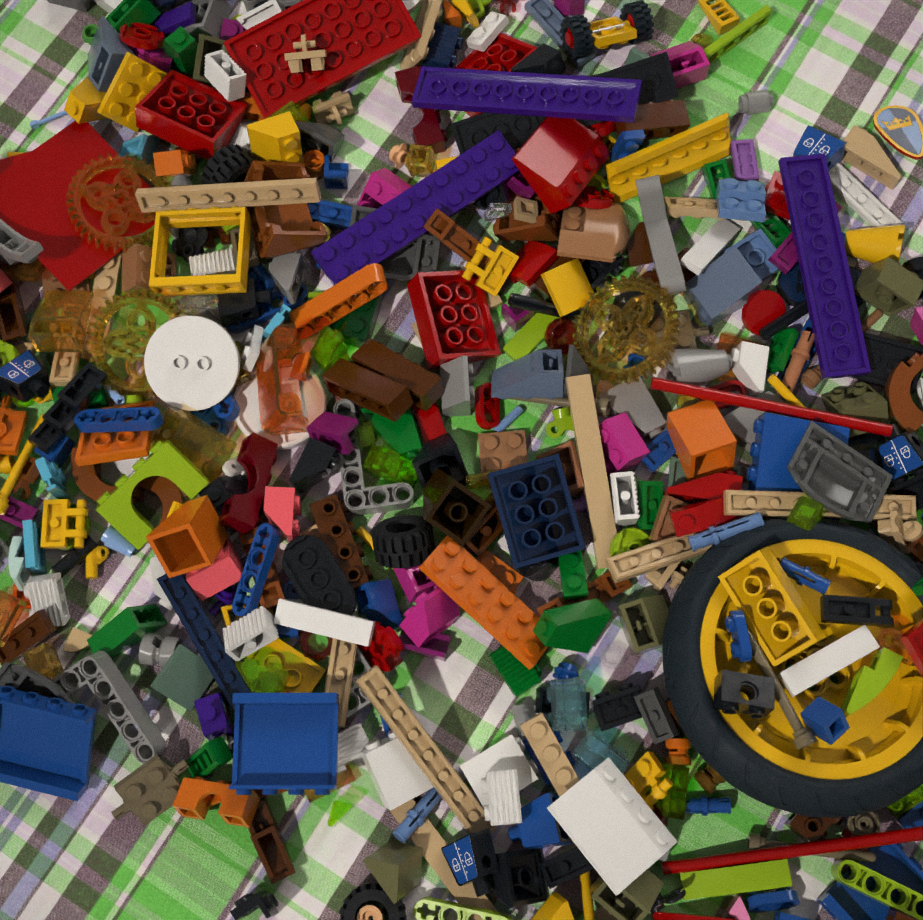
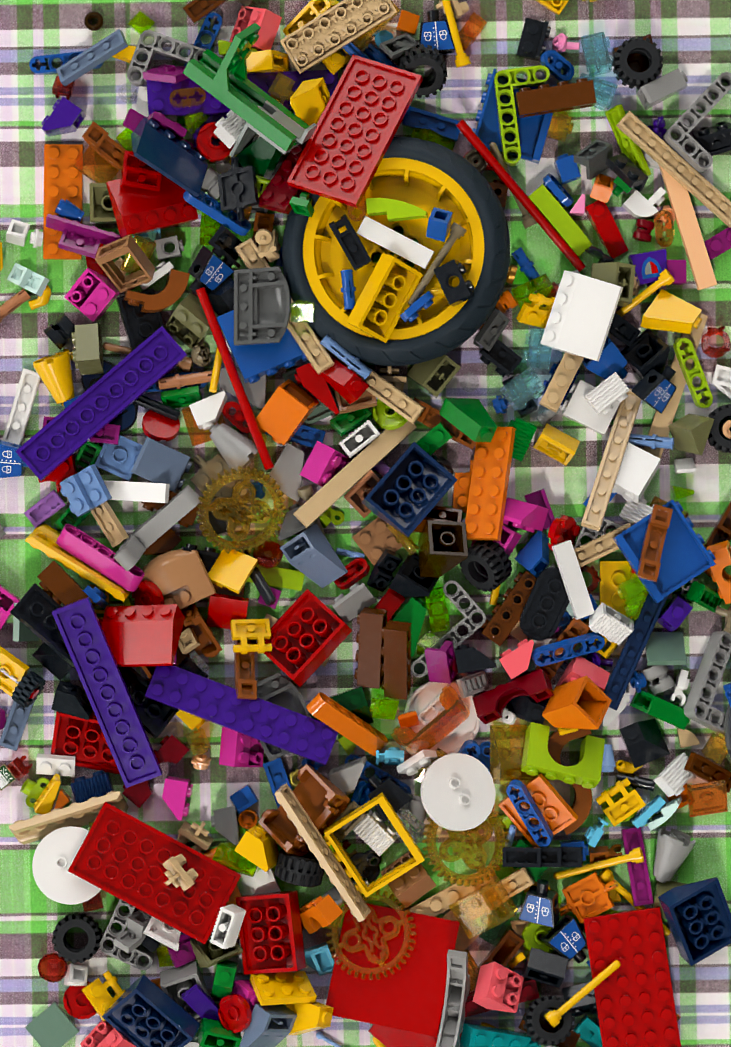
camera: 130 degrees left, 15 degrees up
(105, 590) = (644, 742): none -> black slope
(136, 671) = (680, 684): none -> white plate
(172, 626) = (638, 681): none -> blue plate
(288, 450) = (472, 684): none -> light grey slope
(299, 733) = (653, 543): none -> dark orange slope
(365, 836) = (684, 465): none -> white slope
(382, 110) = (175, 795): none -> dark pink slope
(469, 440) = (382, 572): none -> black slope
(483, 707) = (556, 444): none -> yellow slope
(671, 170) = (98, 557): none -> dark pink beam
(813, 396) = (200, 355): none -> dark tan plate

